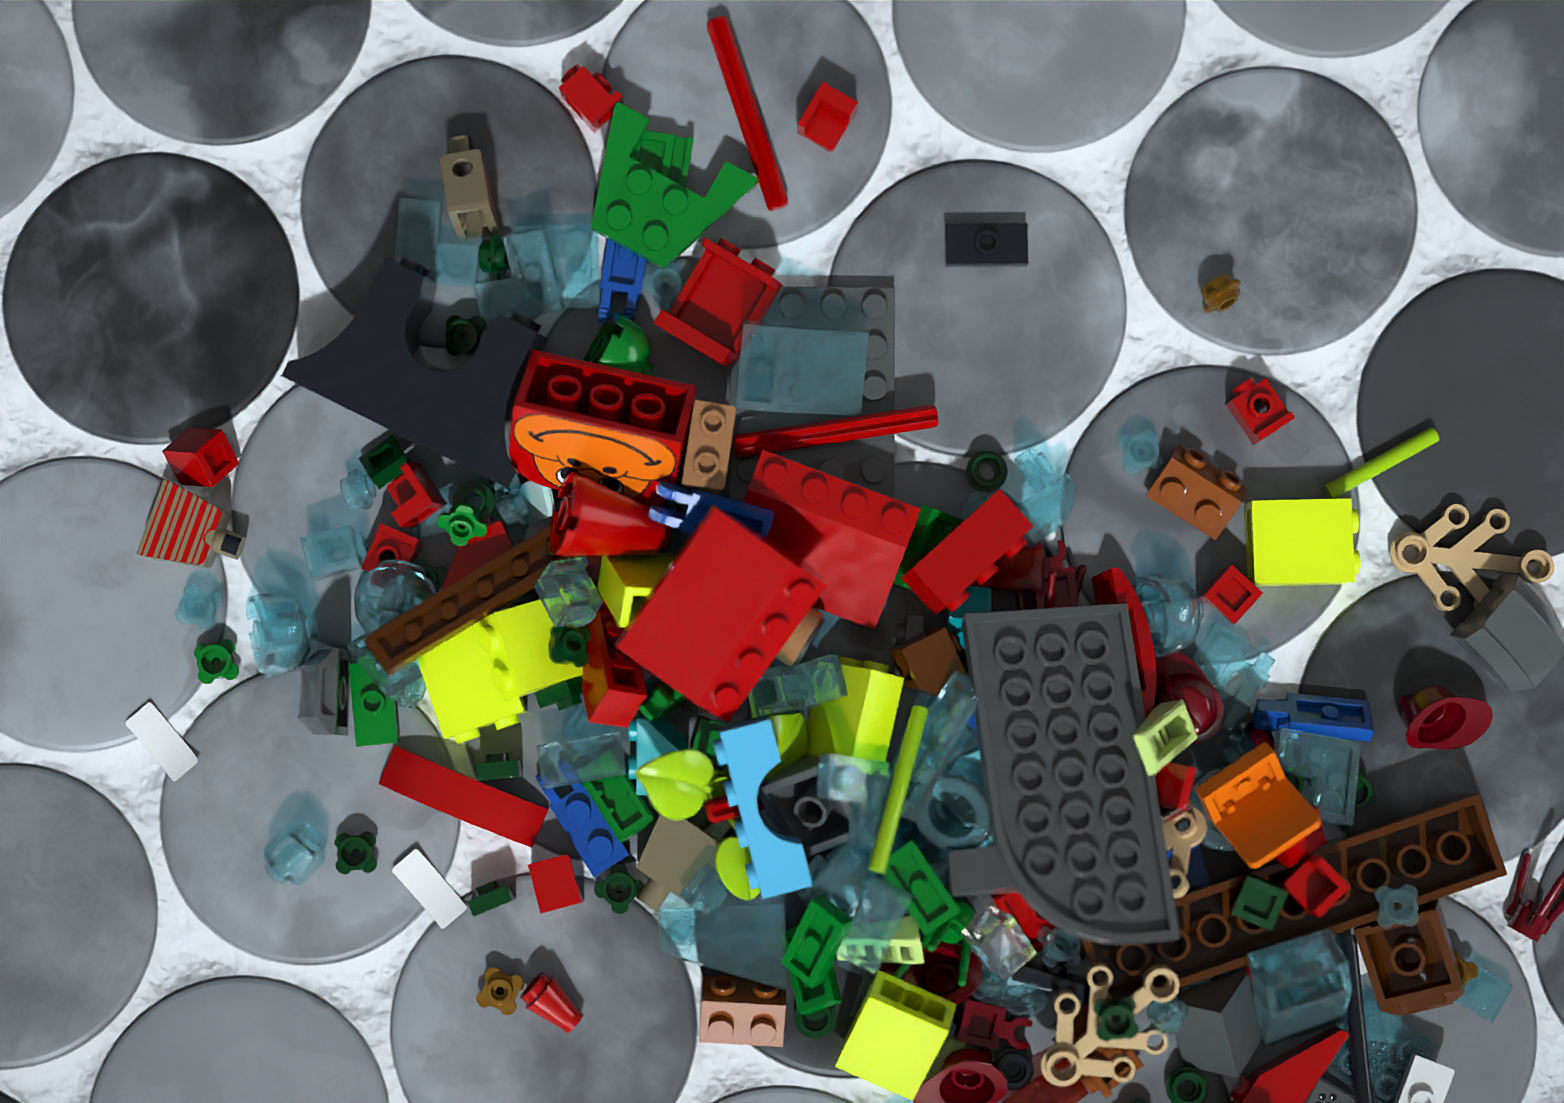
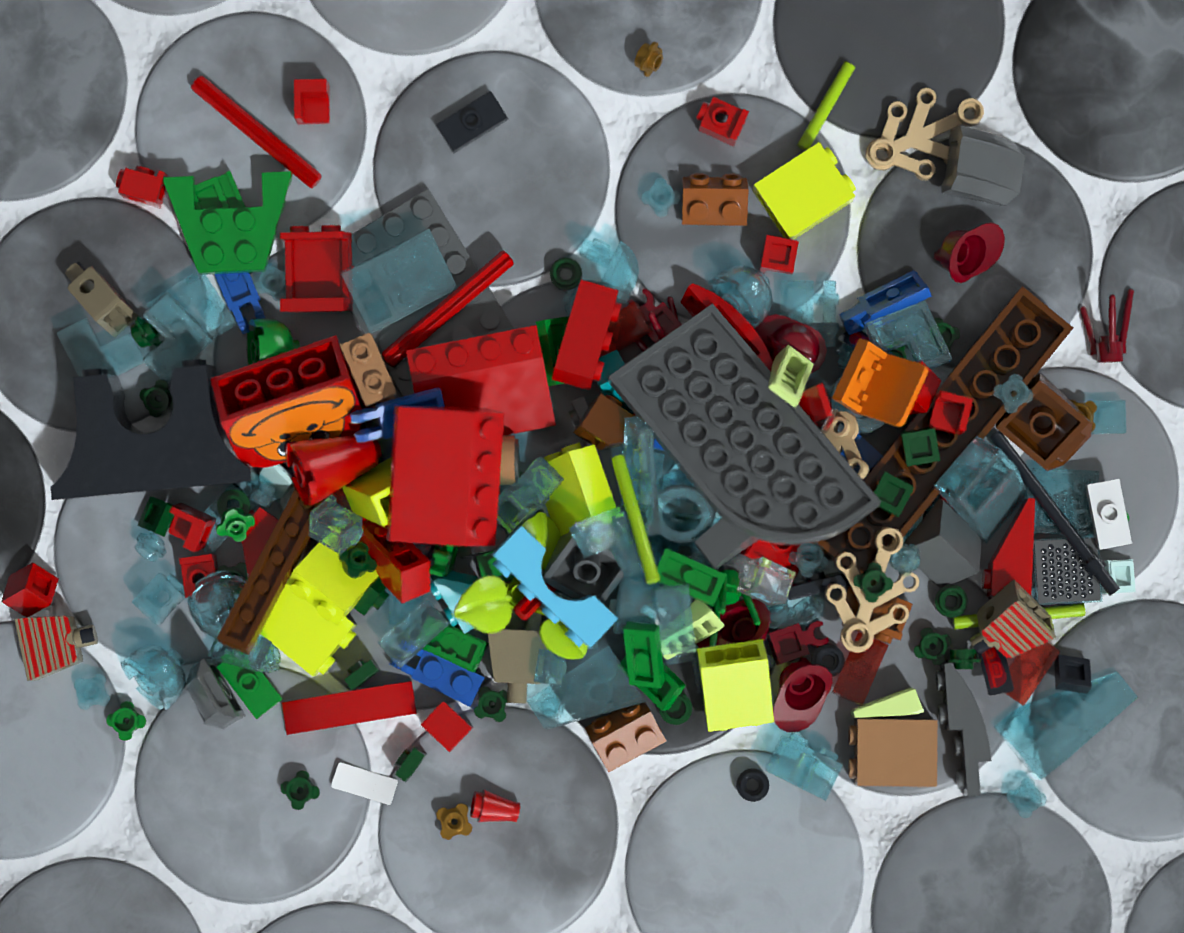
camera: 25 degrees left, 0 degrees up
(162, 741) = (122, 797): white sticker -> none
(295, 853) = (259, 815): clear light blue head -> none
(1197, 934) = (892, 493): none -> dark green plate

